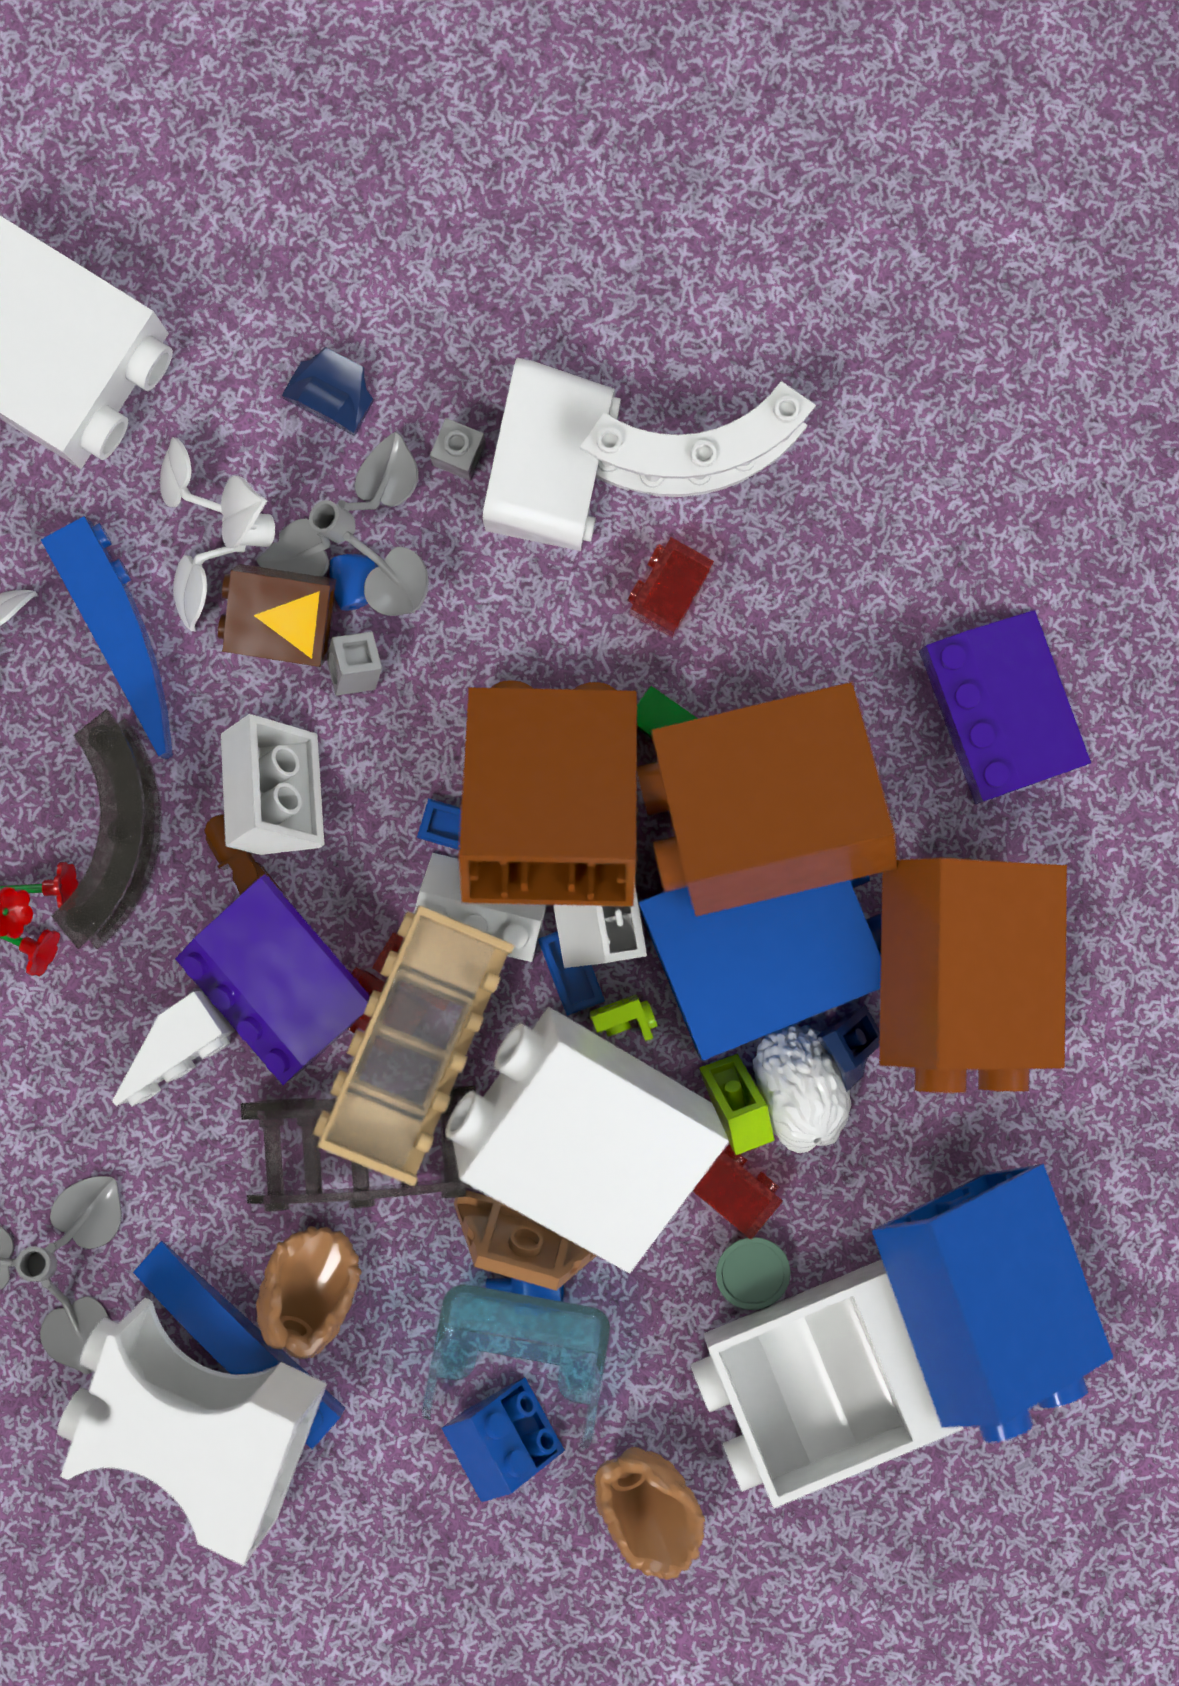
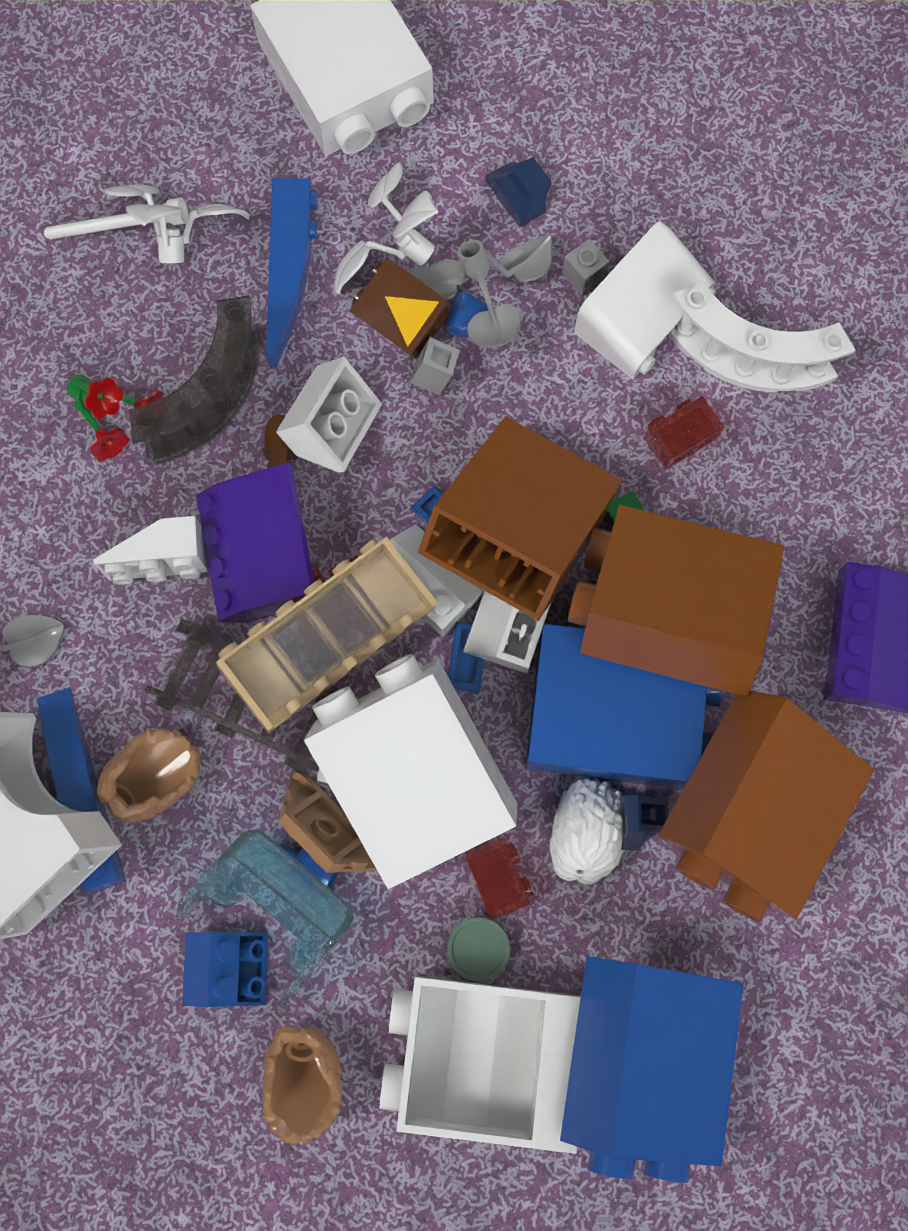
camera: 30 degrees right, 10 degrees down
(616, 1016) = (481, 701): lime bracket -> none
(738, 1104) = (535, 817): lime slope -> none

